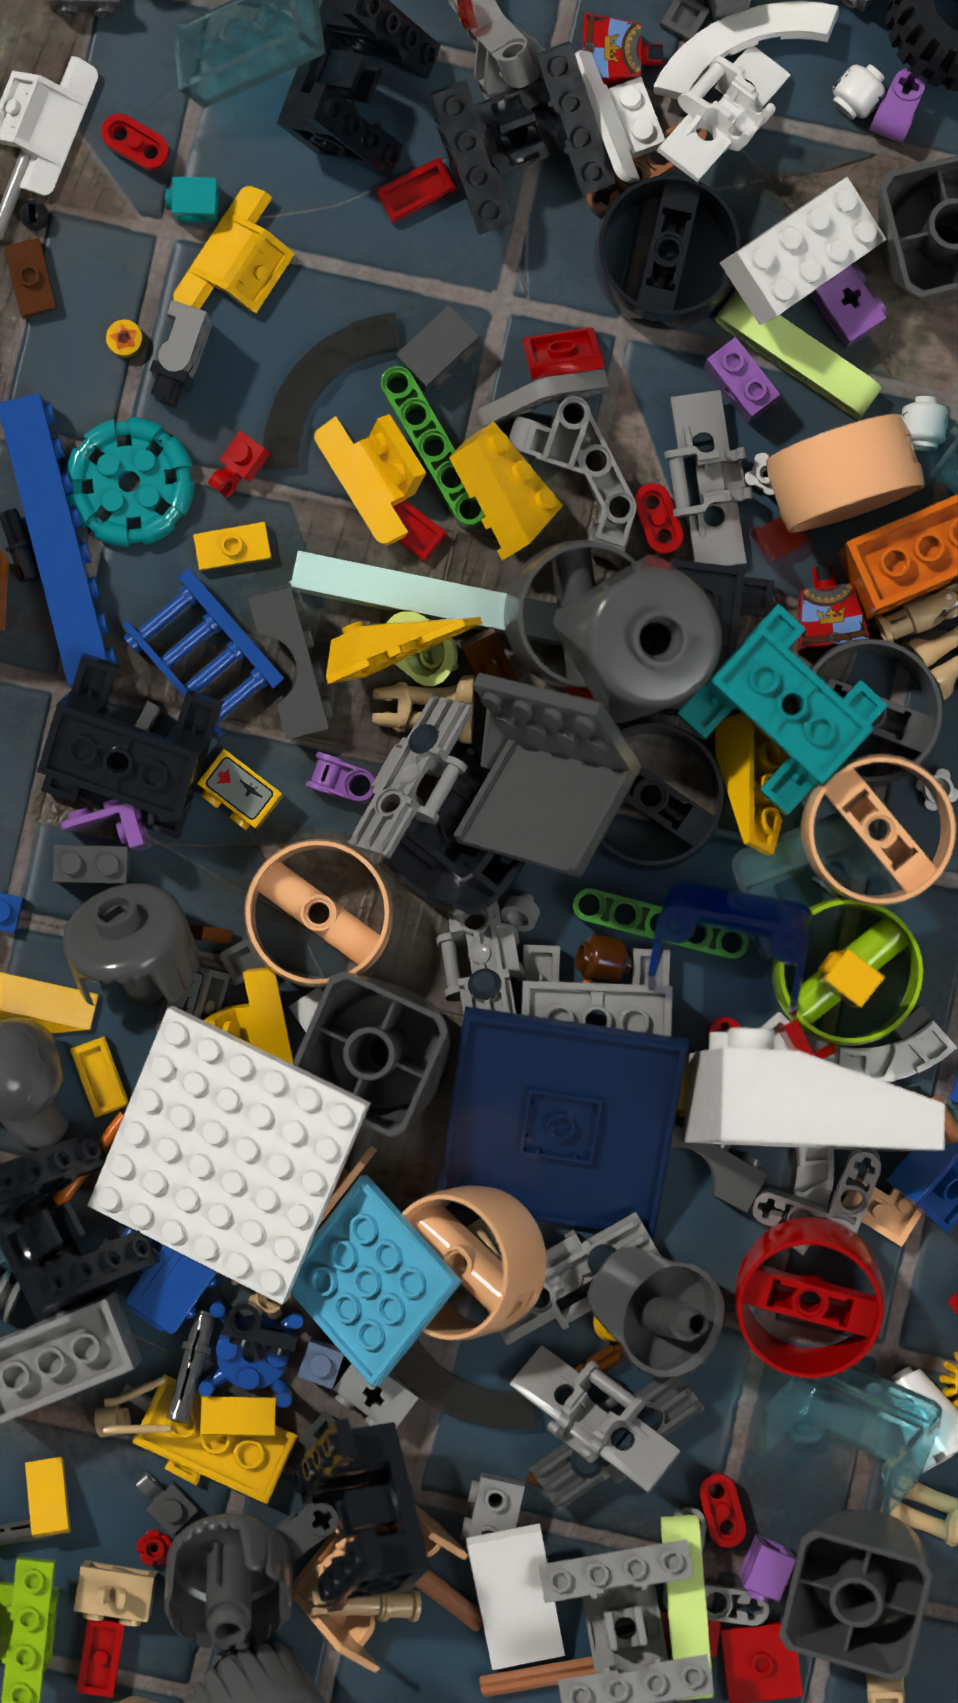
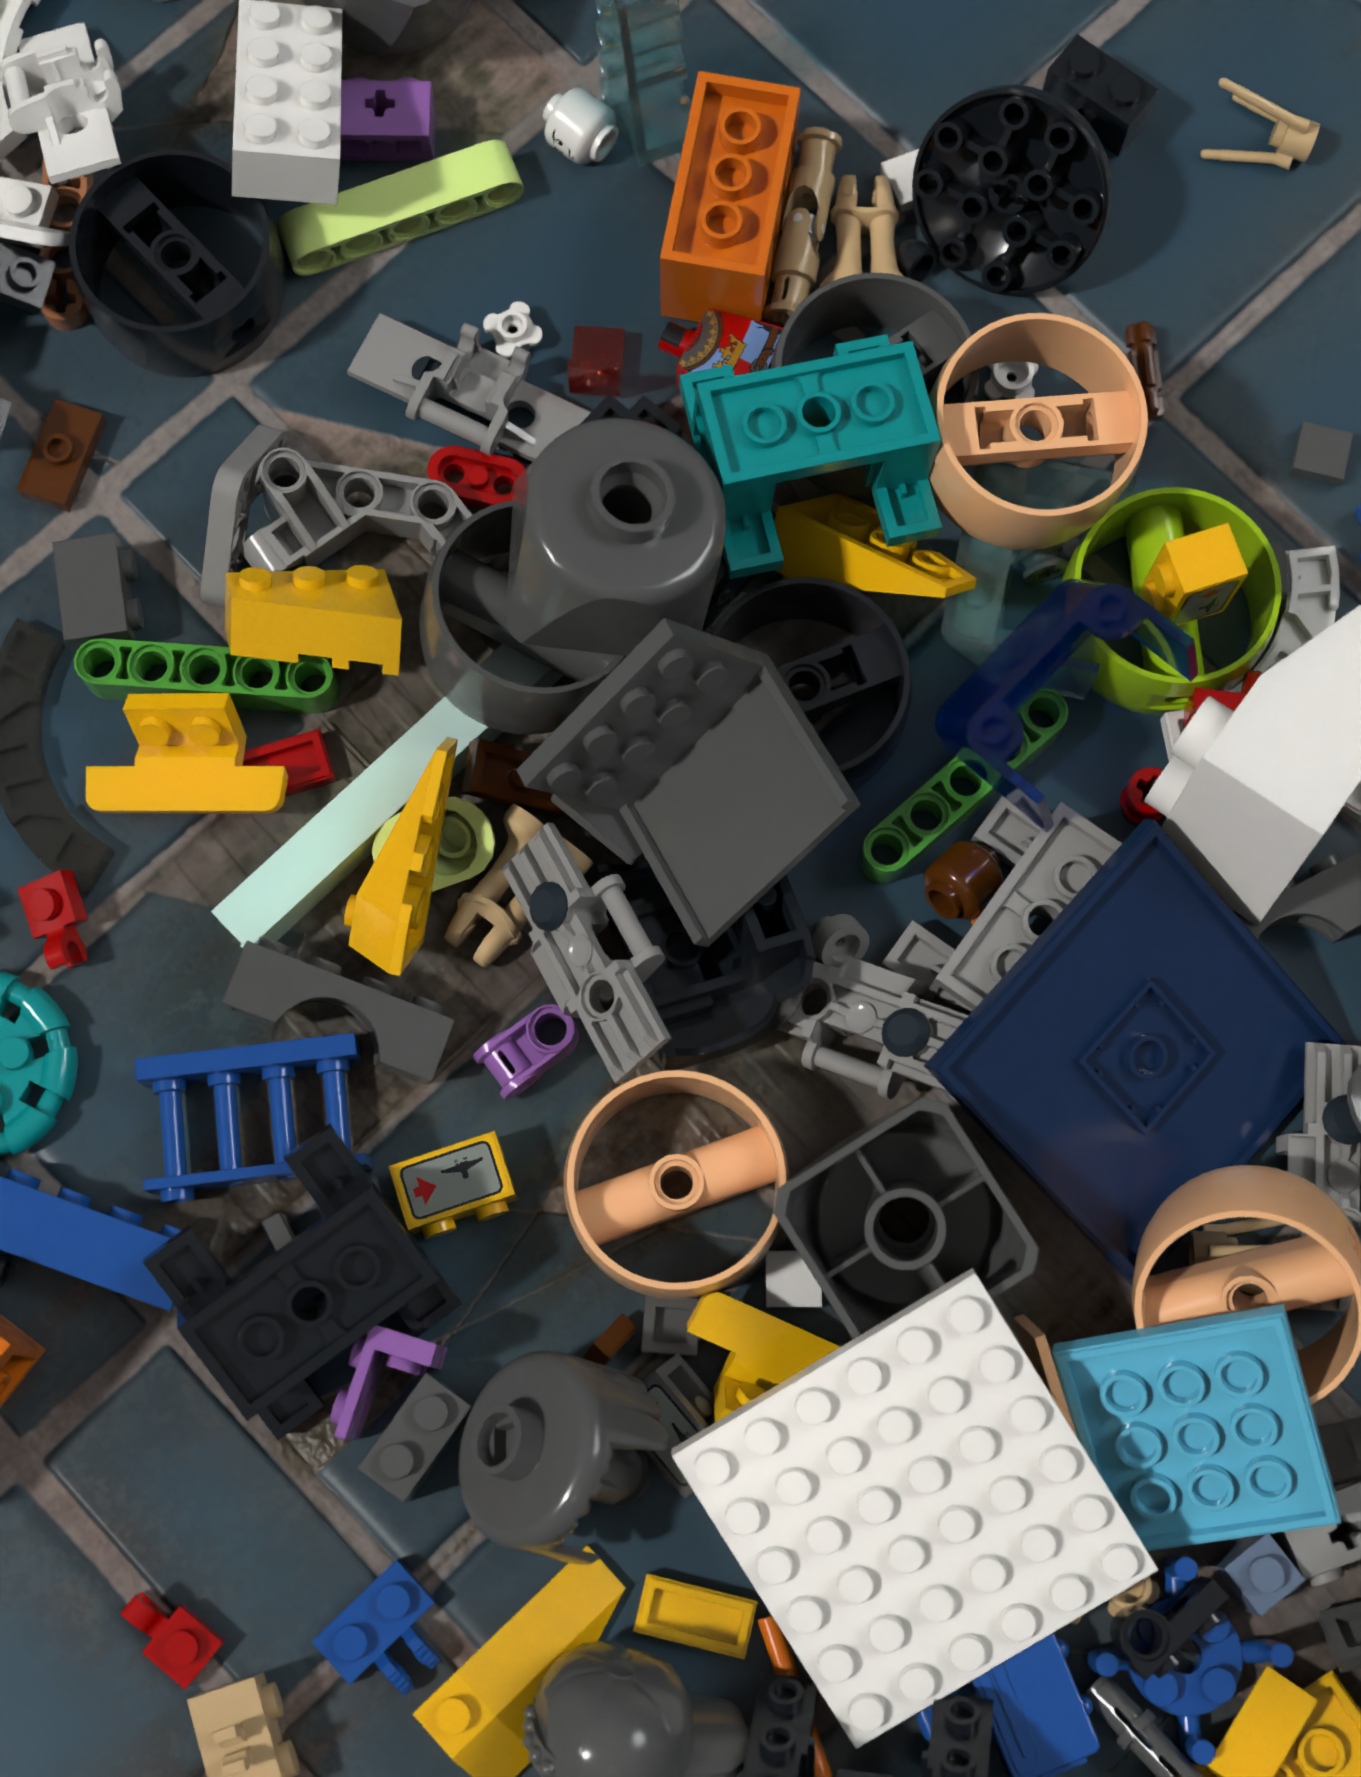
camera: 55 degrees left, 10 degrees down
(232, 546) = (150, 994): yellow plate -> none
(509, 265) = (61, 455): none -> reddish brown plate
(562, 353) = (204, 451): red plate -> none
(741, 380) = (386, 280): medium lavender brick -> none
(845, 473) = (575, 218): light nougat cylinder -> none

